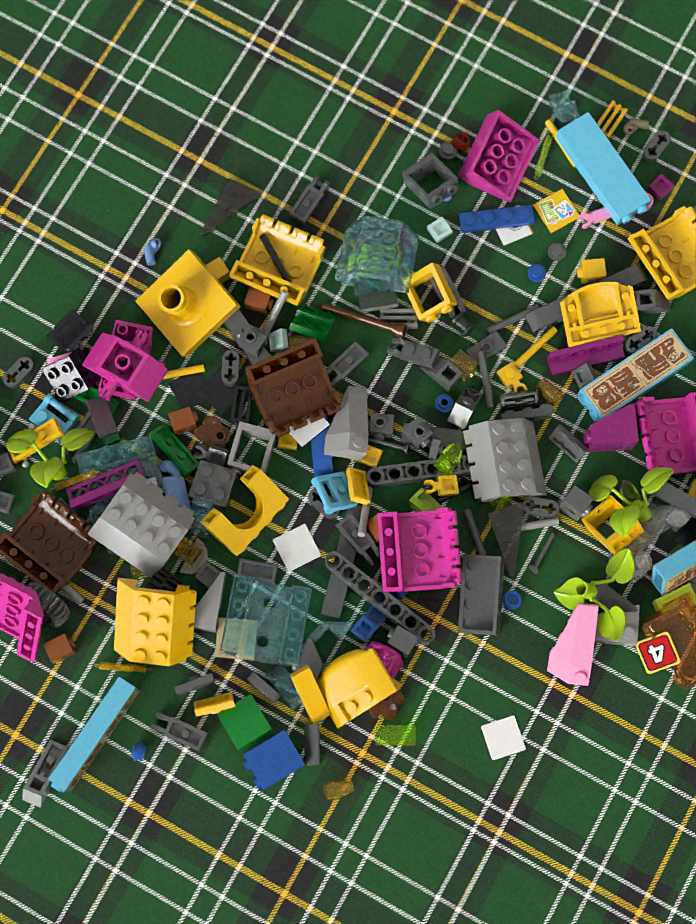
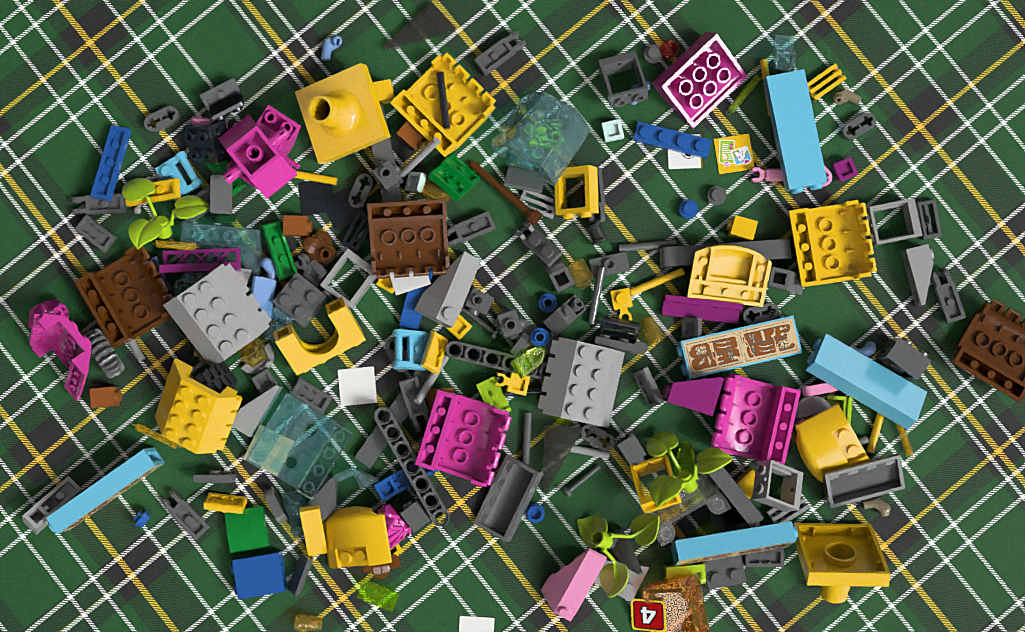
camera: 25 degrees right, 10 degrees up
(445, 439) = (535, 342): none -> blue plate

